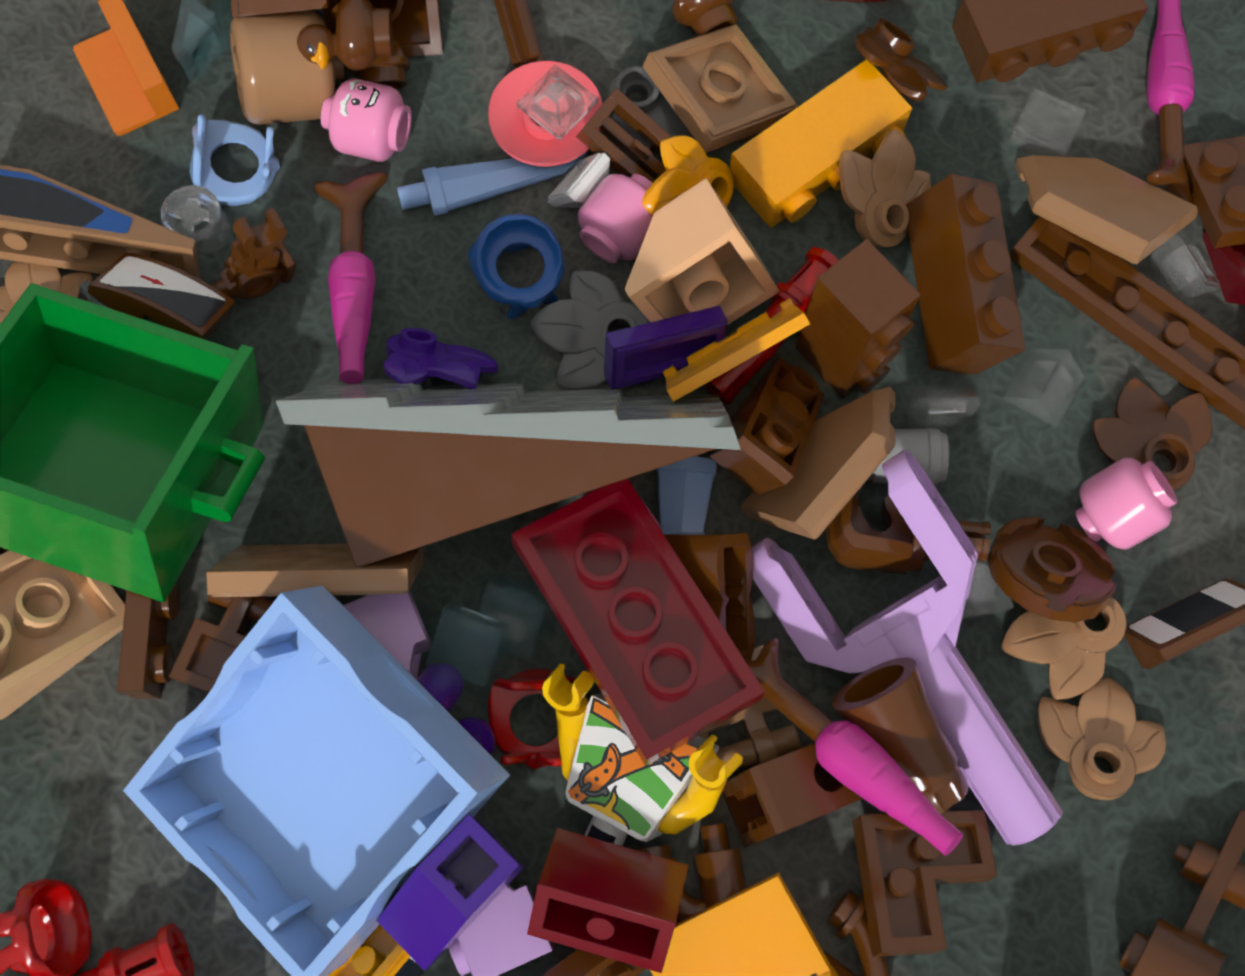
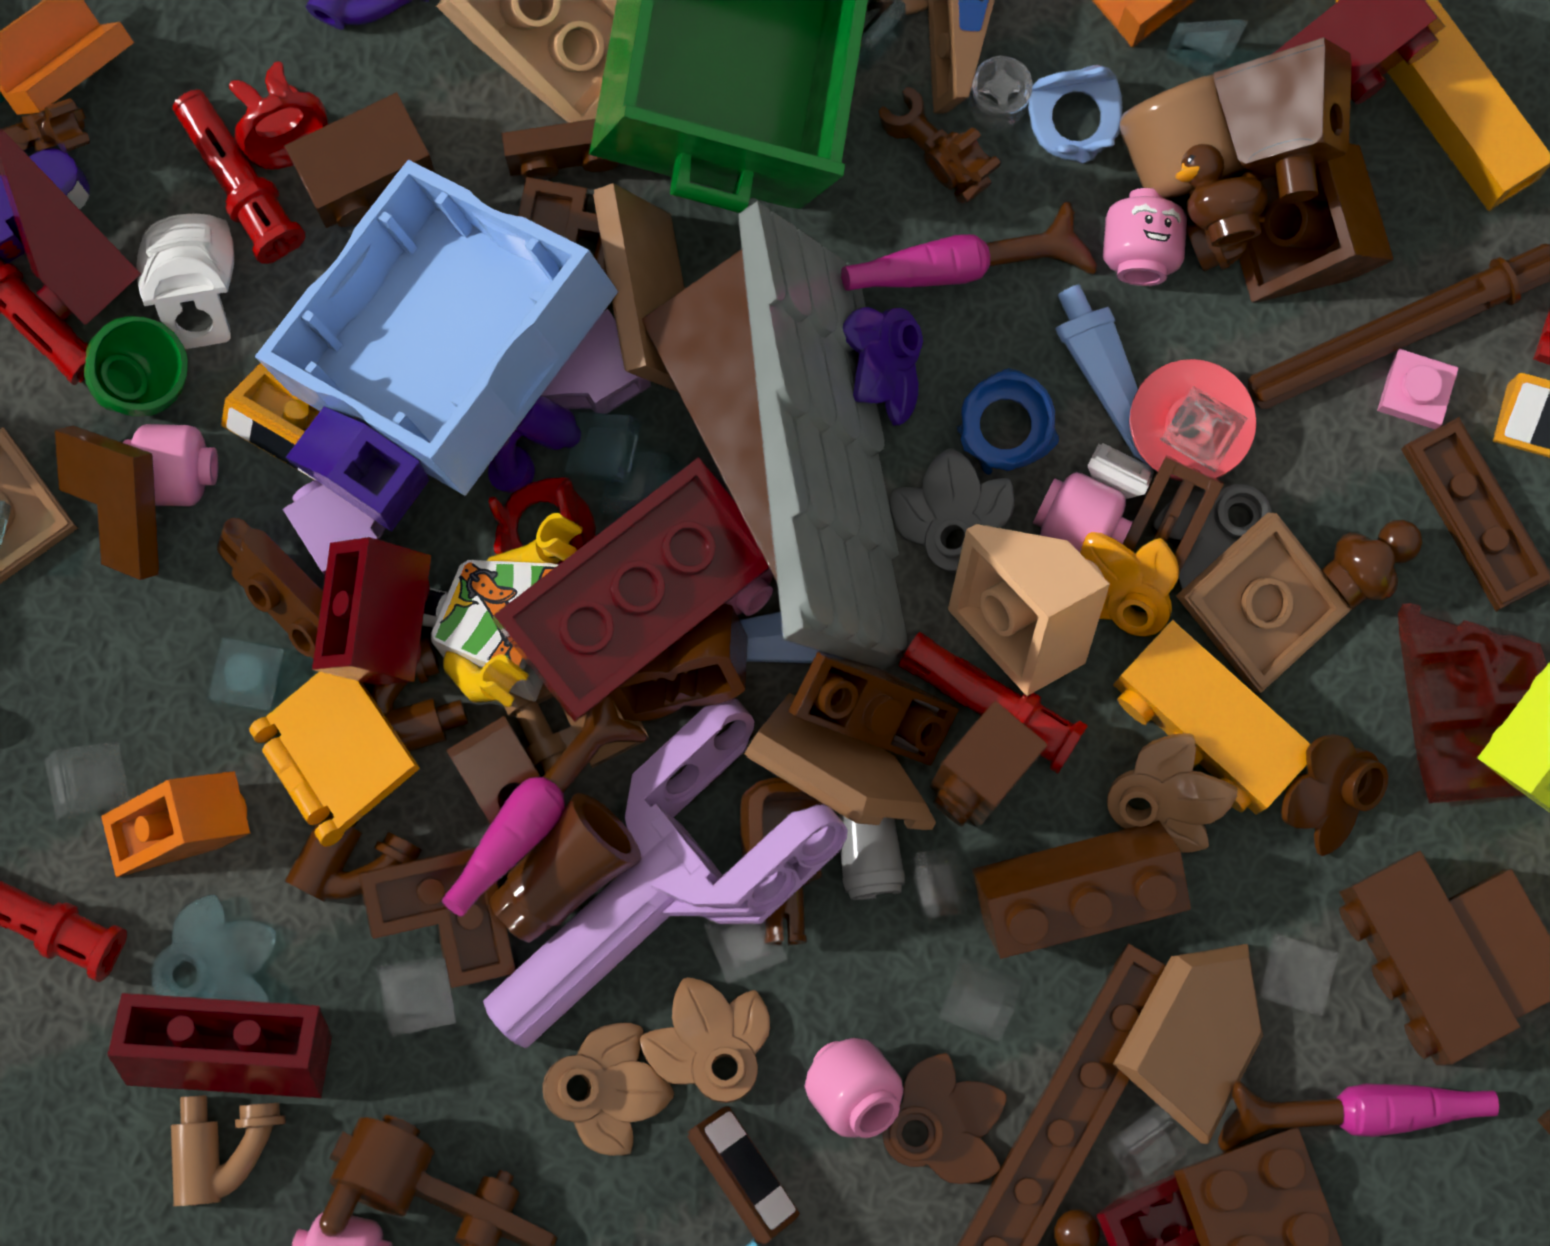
camera: 80 degrees right, 5 degrees up
(106, 852) = (356, 159): none -> reddish brown brick
(162, 293) = (903, 79): slope -> none
(649, 348) = (942, 587): dark purple tile -> none
(734, 349) = (934, 647): light orange piece -> none
(995, 916) = (416, 995): none -> clear slope
(1051, 570) = (768, 1014): reddish brown tile -> none

